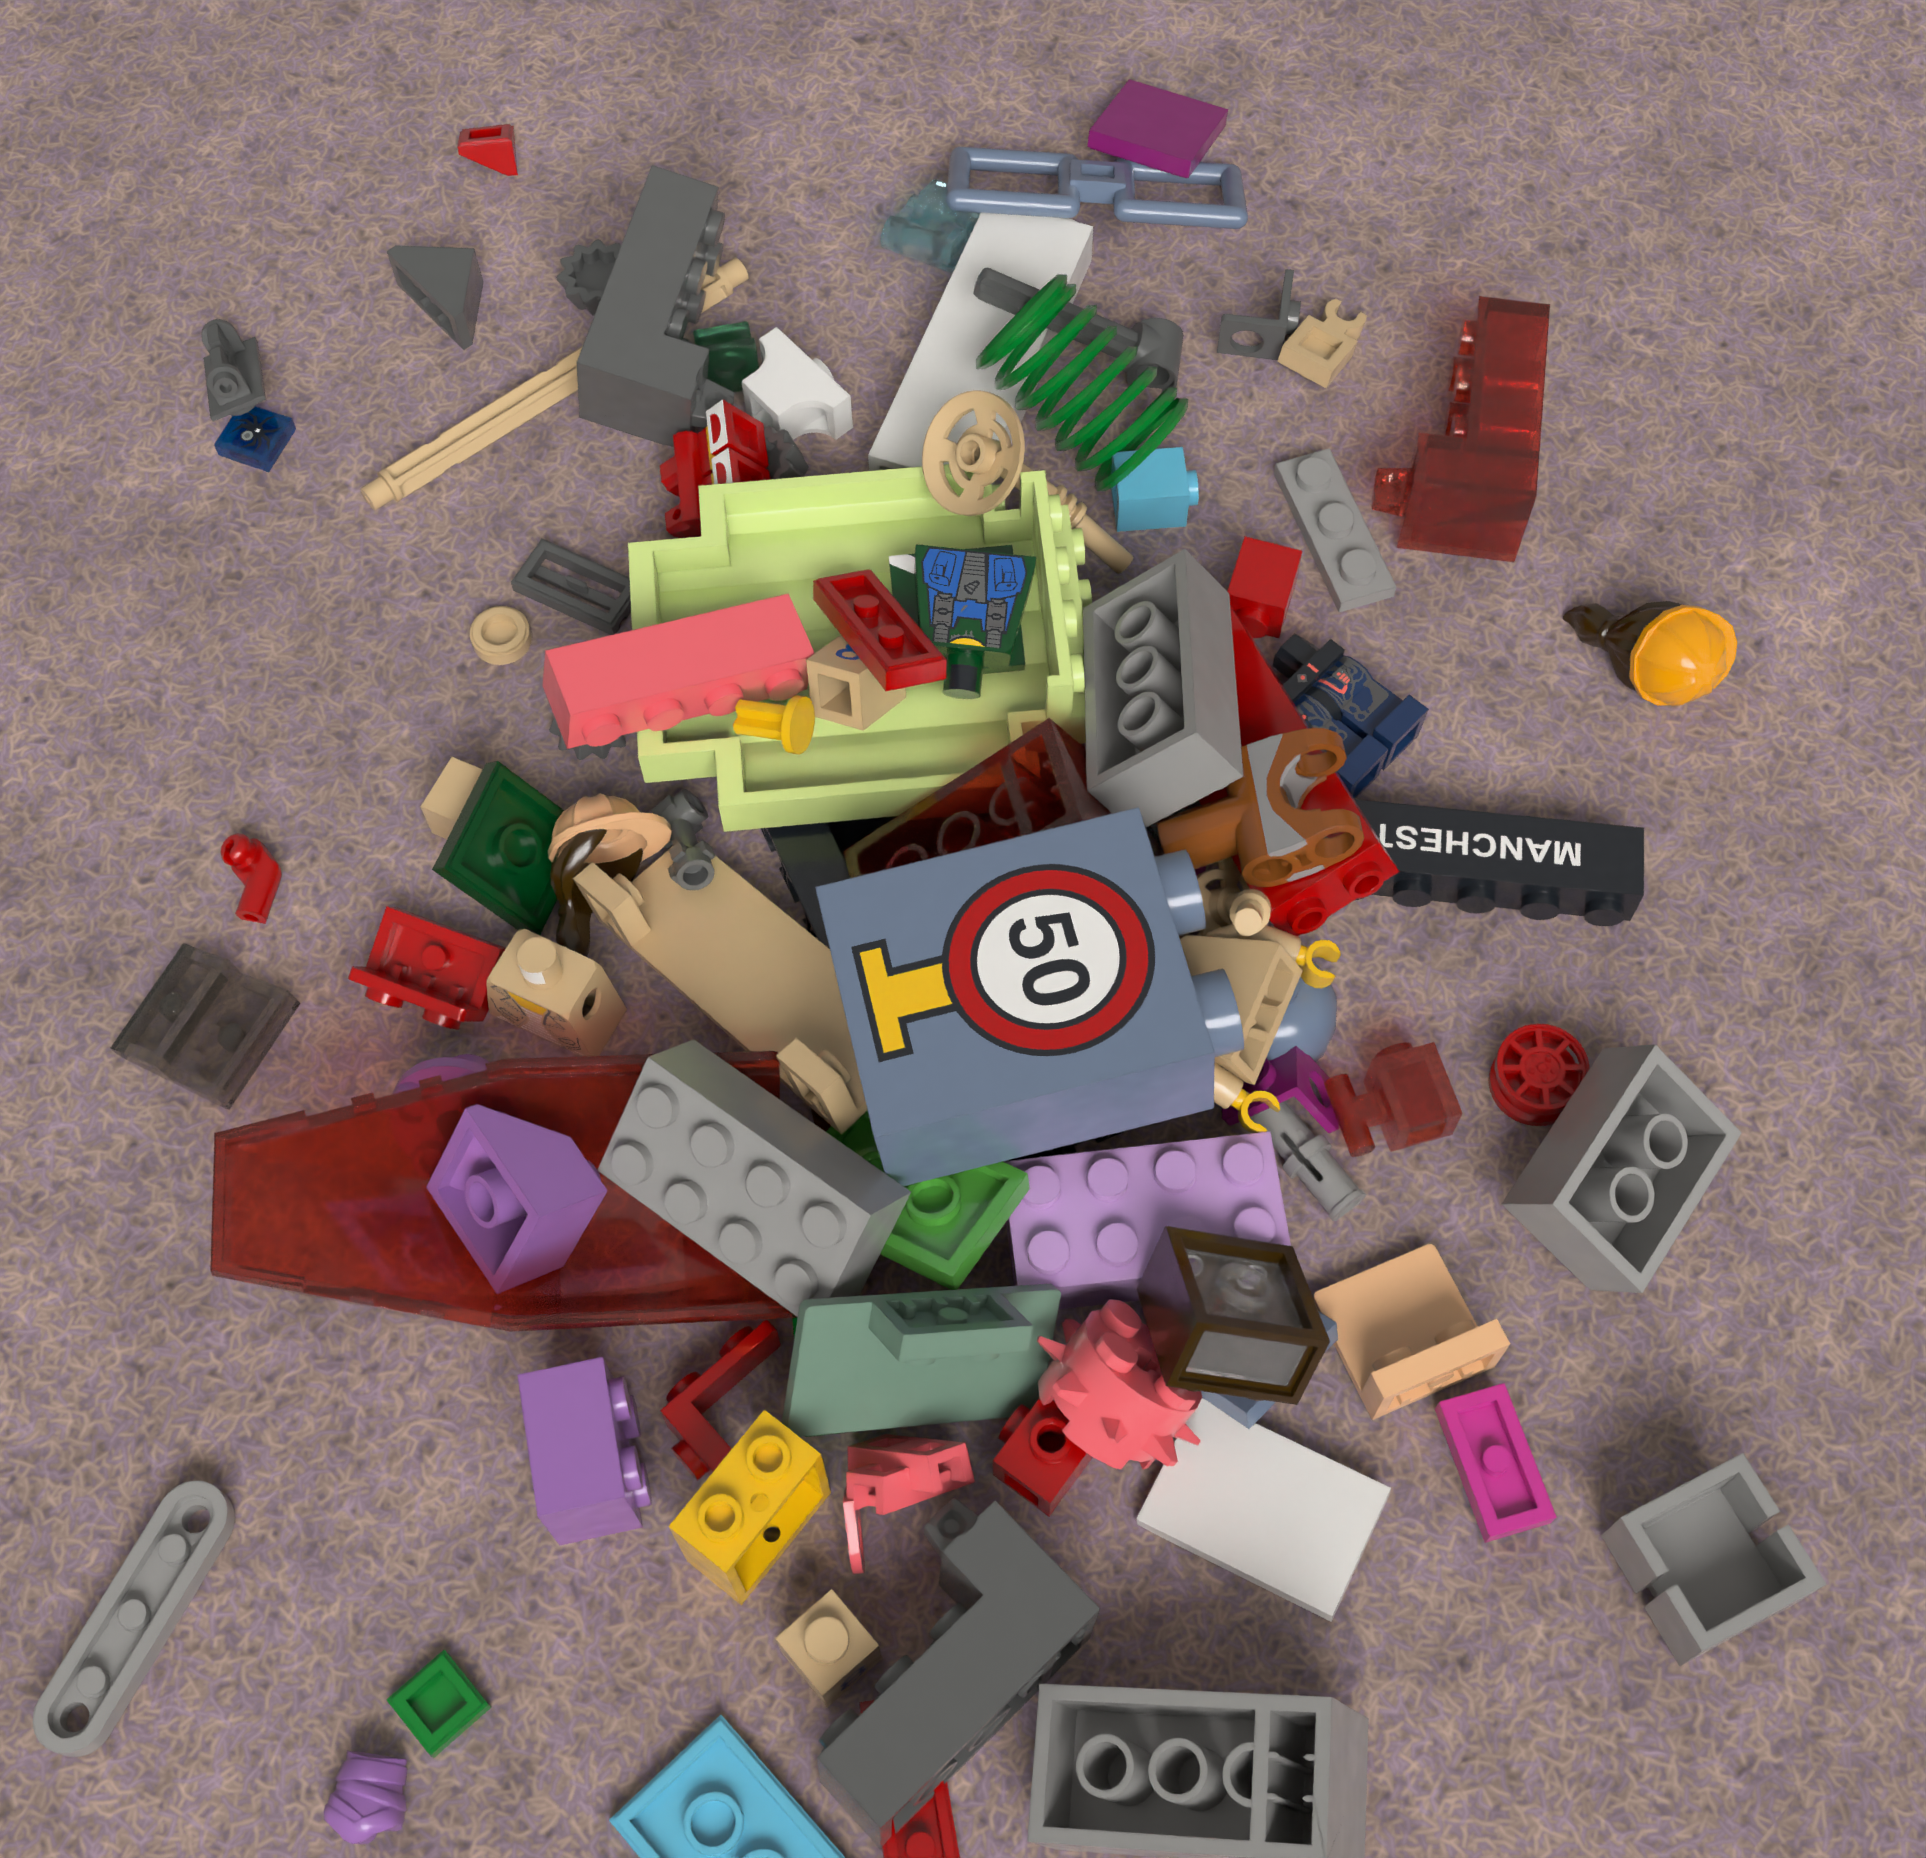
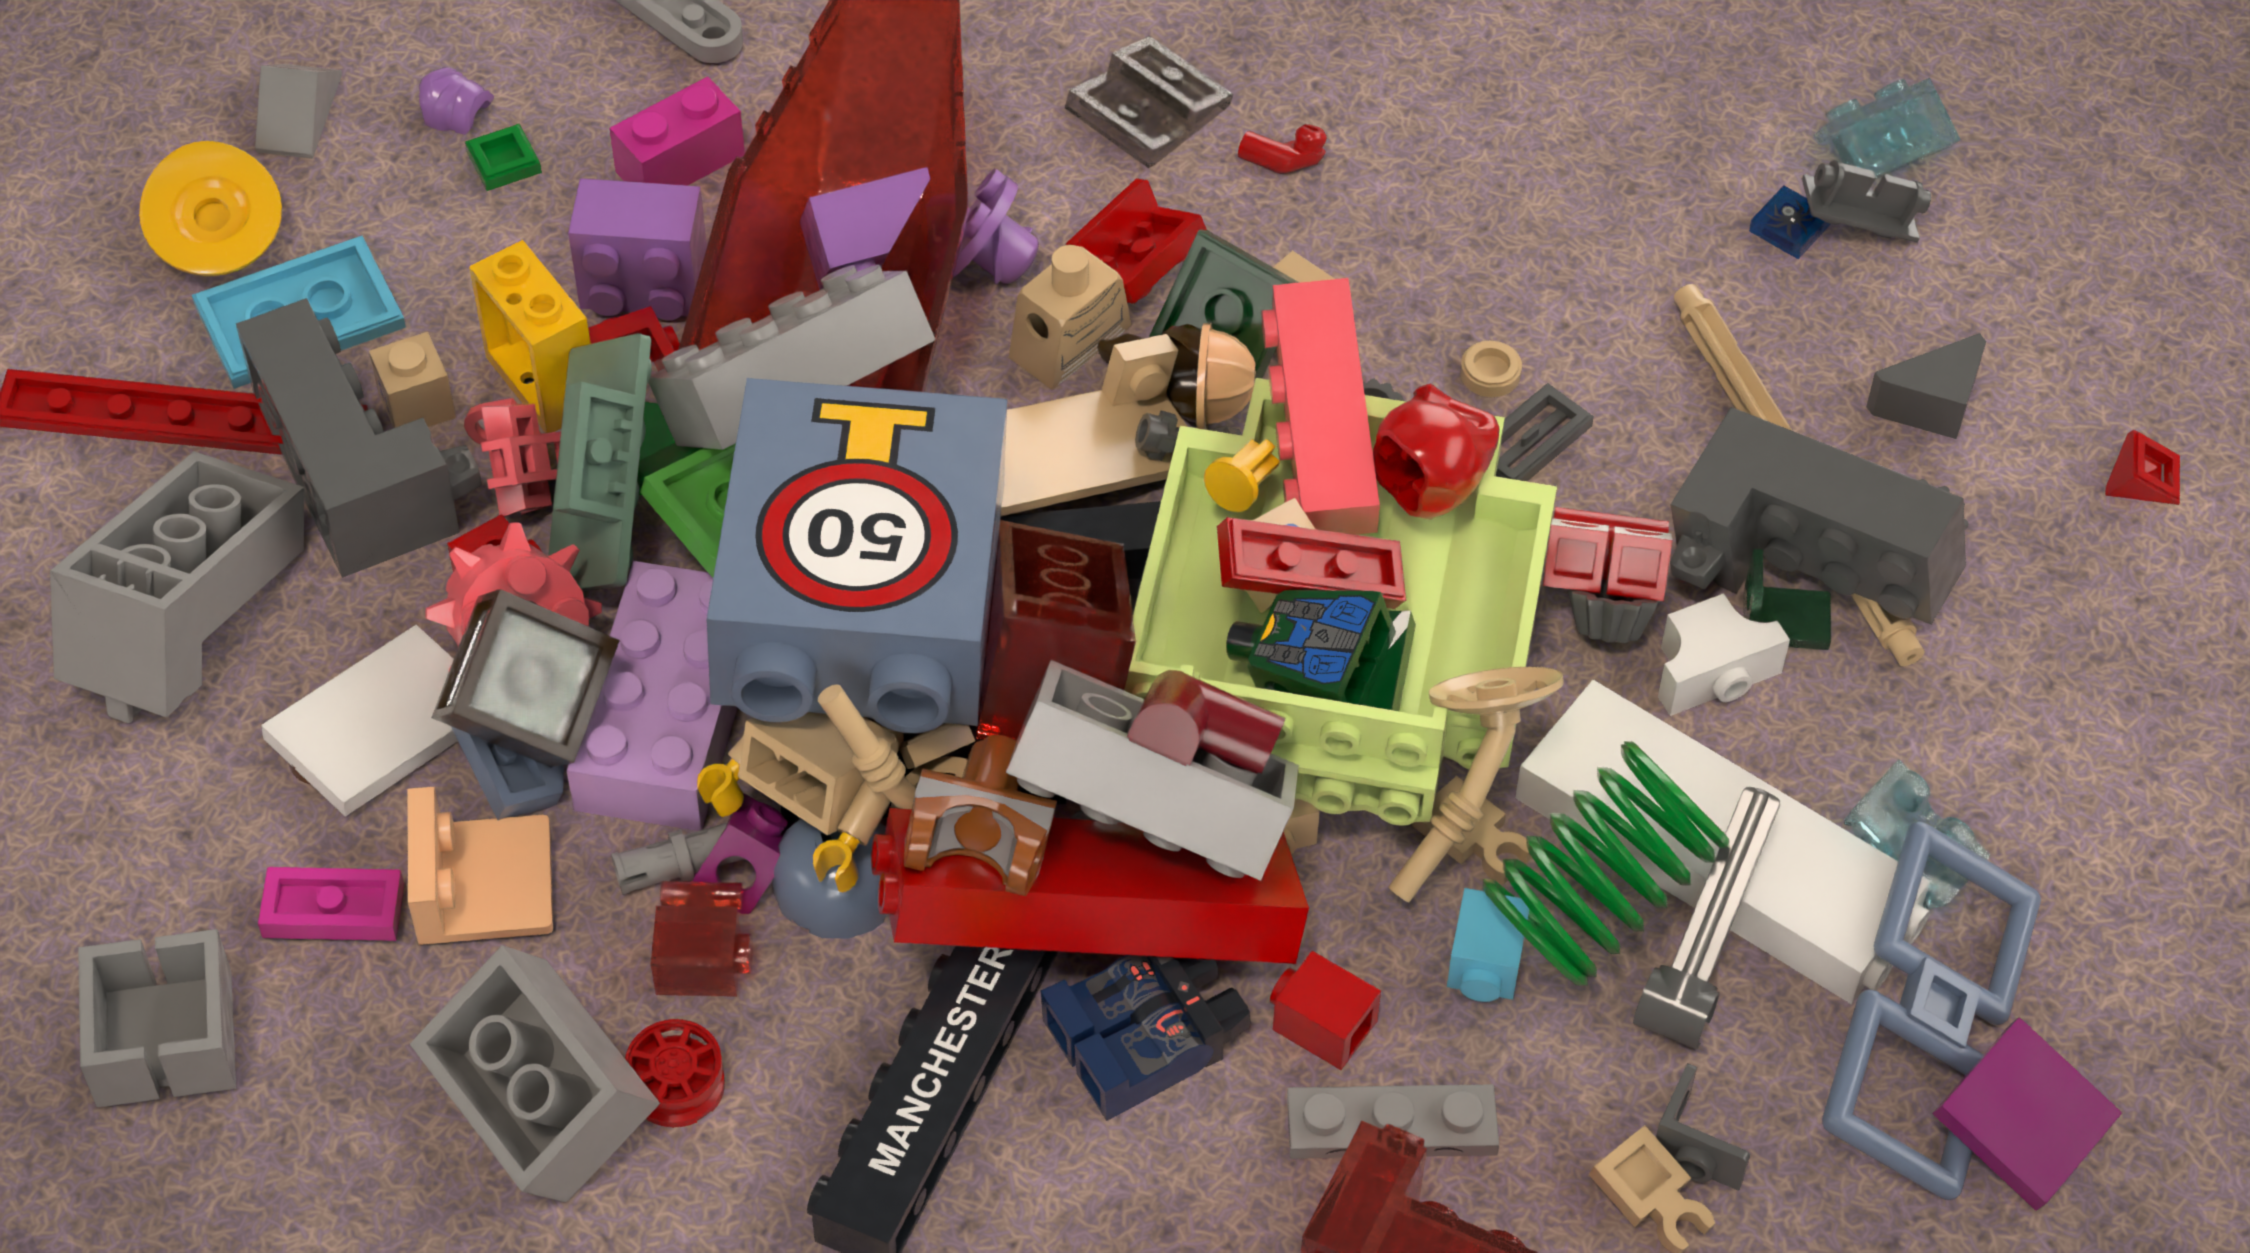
camera: 105 degrees right, 10 degrees down
(124, 377) = (1892, 130): none -> clear light blue bracket
(389, 1486) = (679, 137): none -> dark pink brick
(702, 566) = (1433, 452): none -> red piece
(1124, 645) = (1192, 714): none -> brick

